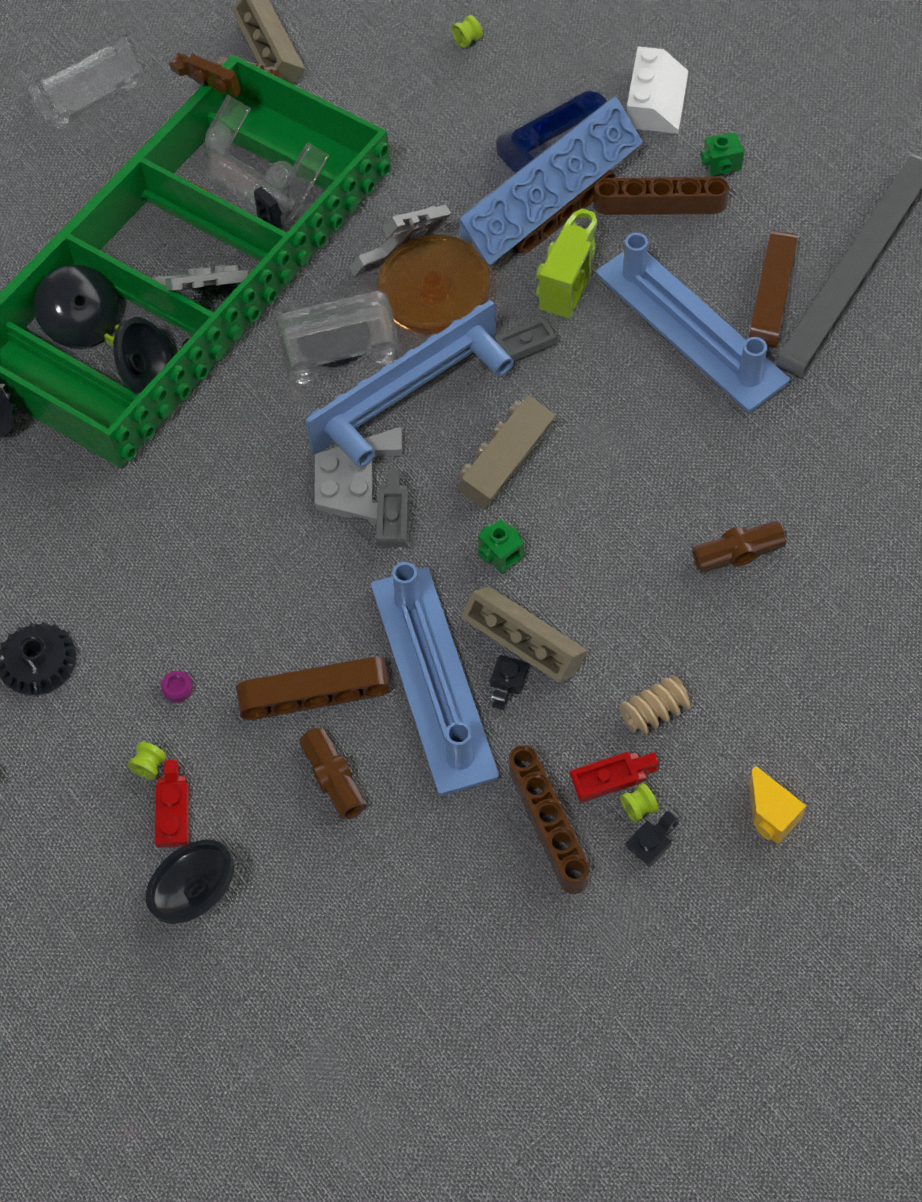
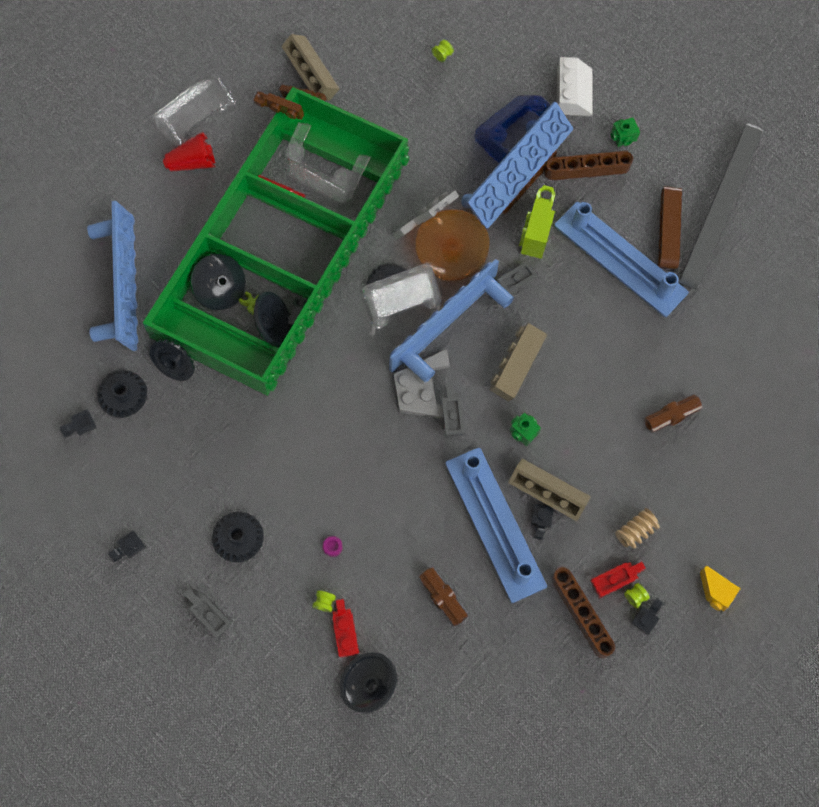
camera: 15 degrees left, 10 degrees up
(73, 139) = (190, 155): none -> red cone
(202, 277) = (298, 256): light grey wing -> none
(267, 207) = (335, 201): black plate -> none
(312, 688) = (420, 539): reddish brown beam -> none

